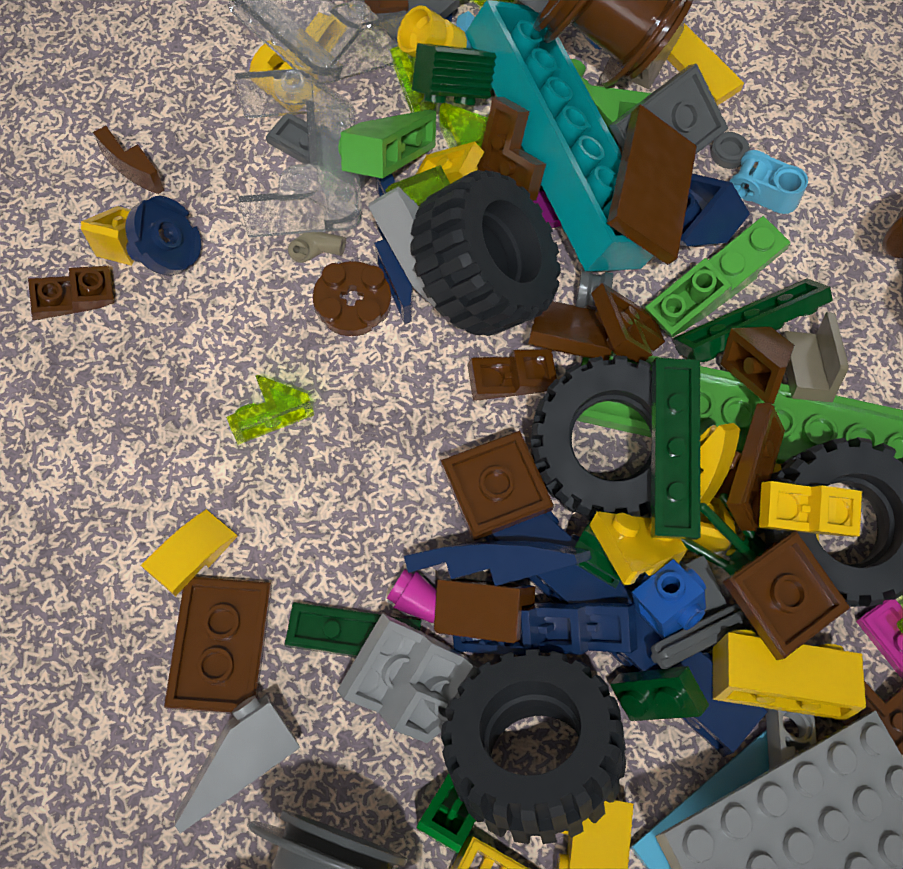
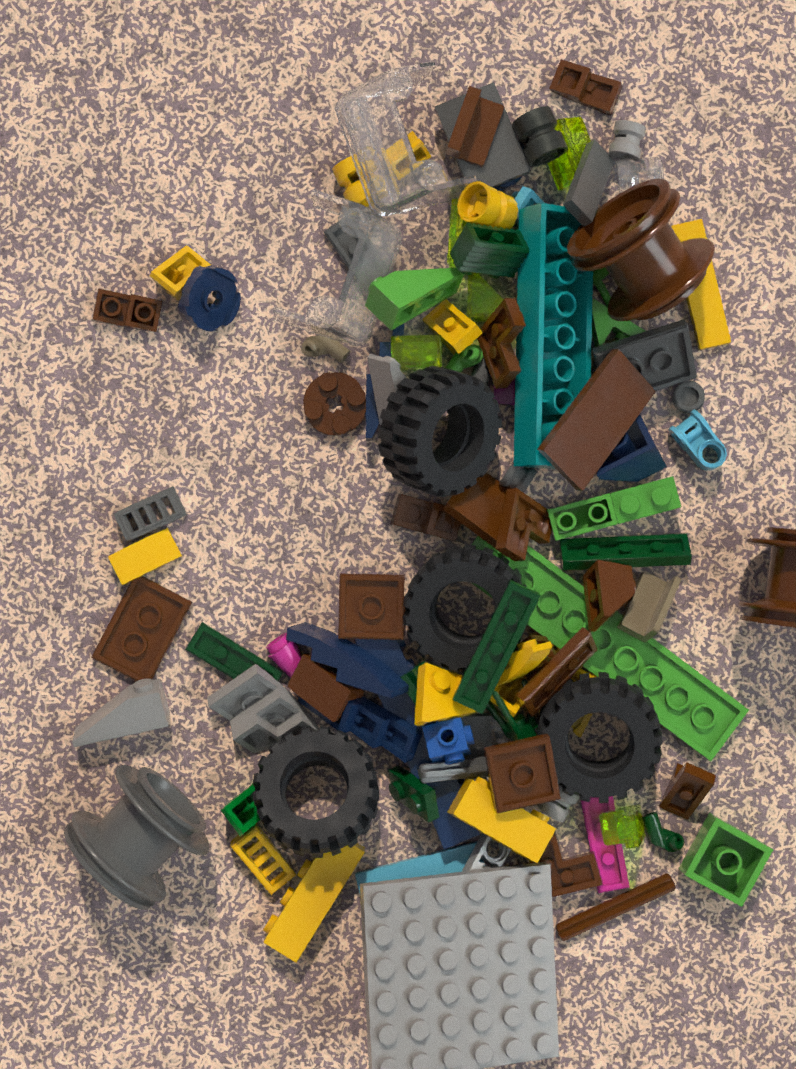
camera: 30 degrees right, 20 degrees up
(130, 163) = (211, 218): reddish brown slope -> none
(157, 500) = (125, 526): none -> dark grey slope
(281, 408) = (246, 474): clear neon green slope -> none
(810, 509) = (567, 725): yellow slope -> none
(846, 625) = (559, 808): none -> light grey wheel

